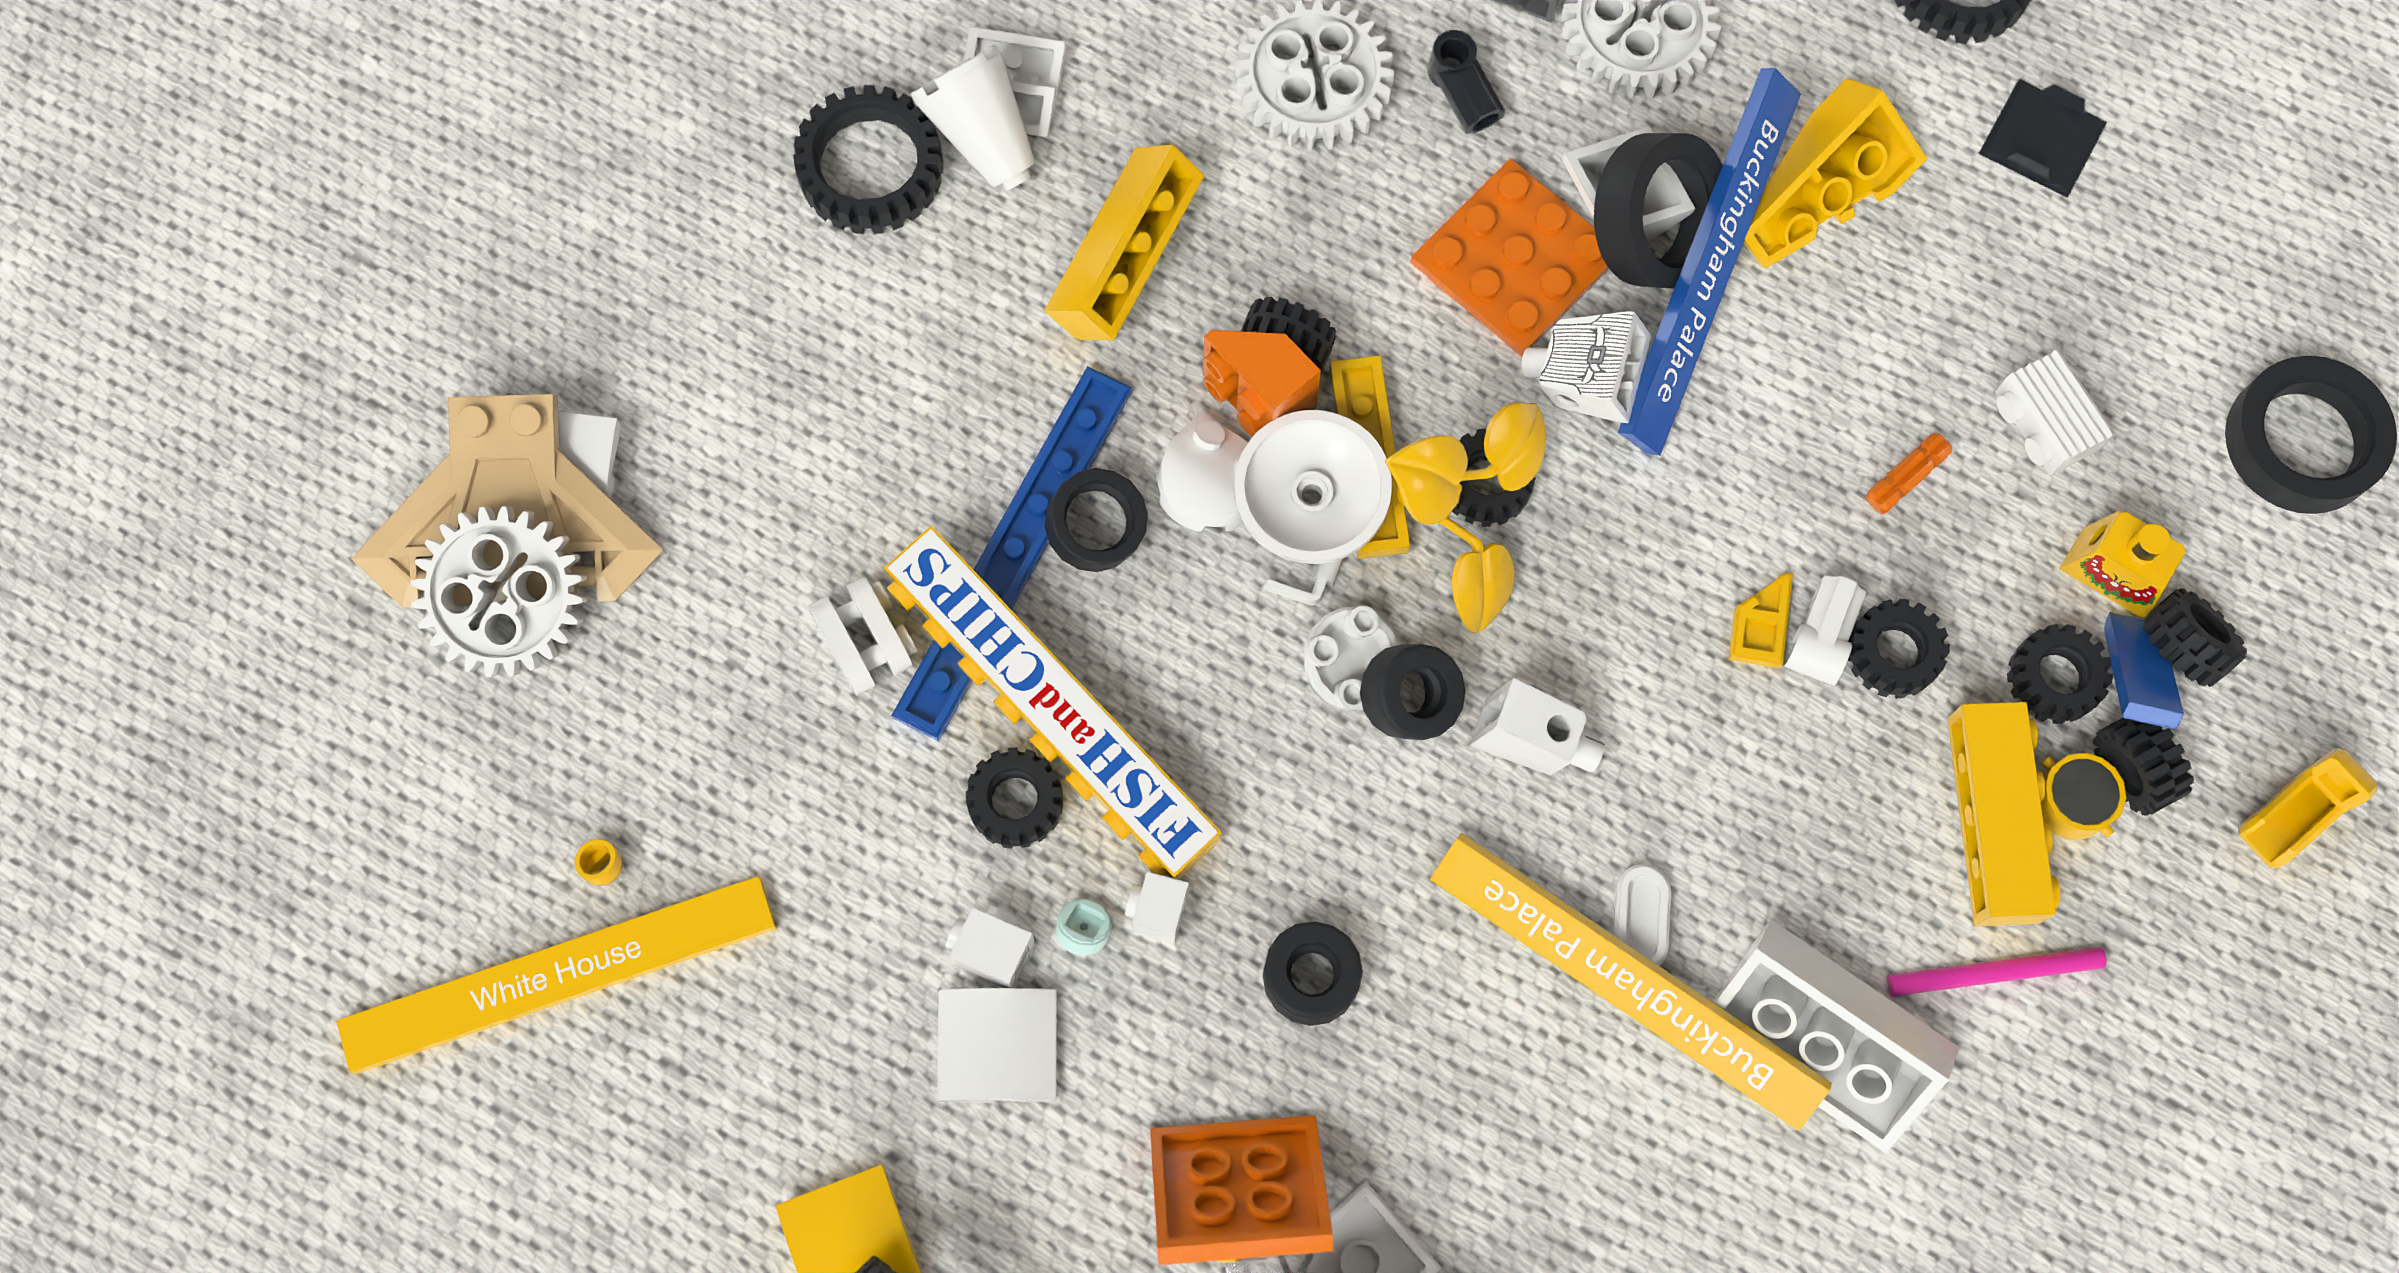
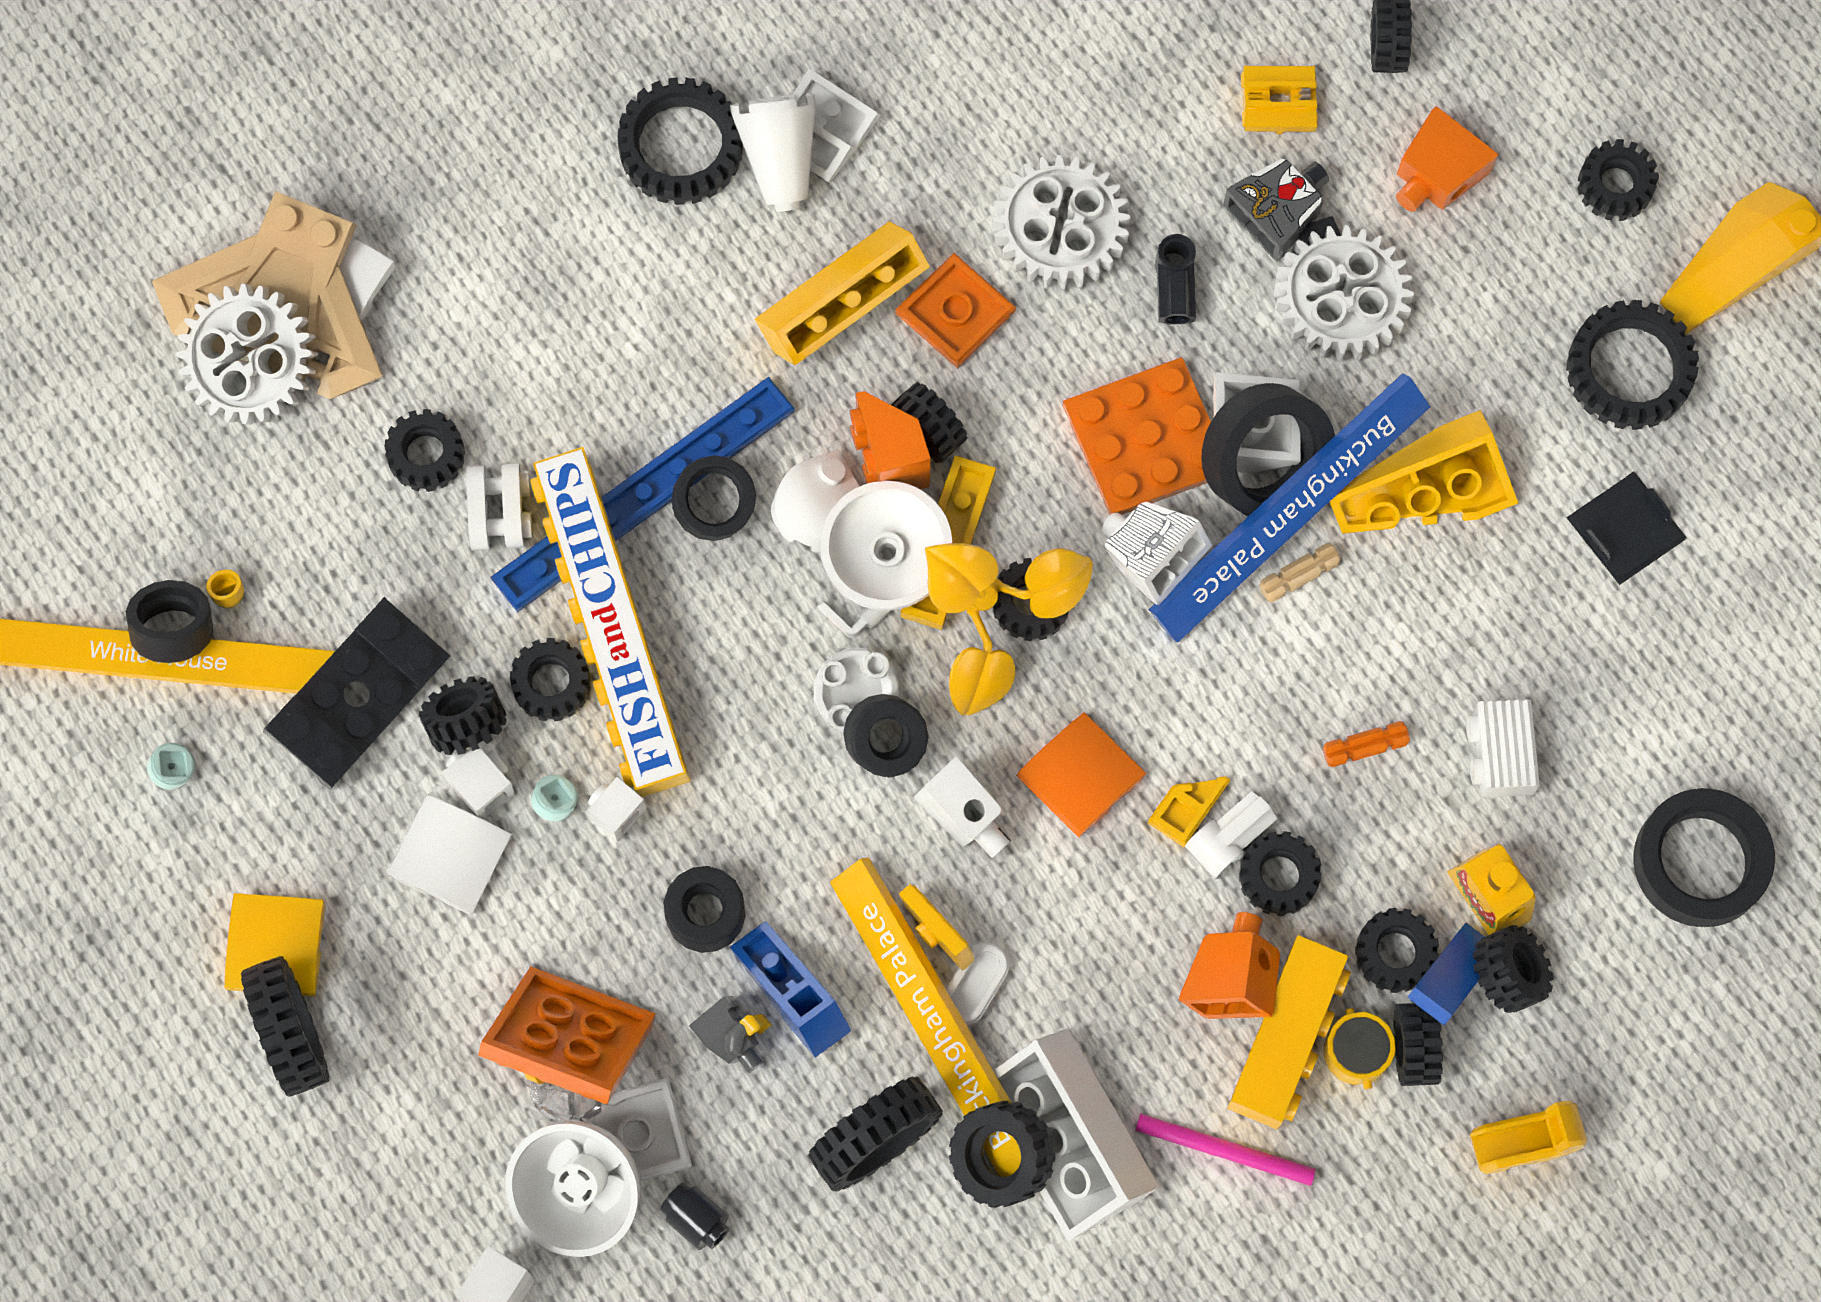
camera: 25 degrees right, 0 degrees up
(533, 904) = (172, 645): none -> black tyre
(631, 1092) = (171, 766): none -> light aqua tile
(744, 579) = (426, 475): none -> black tyre
(818, 856) = (385, 656): none -> black piece
(940, 882) = (463, 715): none -> black tyre
(1248, 212) = (955, 310): none -> orange tile
(1413, 1101) = (730, 1035): none -> dark grey piece
(1452, 1016) = (791, 989): none -> blue slope
(1574, 876) = (935, 928): none -> yellow plate
(1636, 639) = (1081, 774): none -> orange slope
(1639, 1138) = (875, 1133): none -> black tyre
(1746, 326) = (1299, 572): none -> tan axle
(1778, 1134) = (969, 1160): none -> black tyre
(1915, 777) = (1233, 973): none -> orange torso

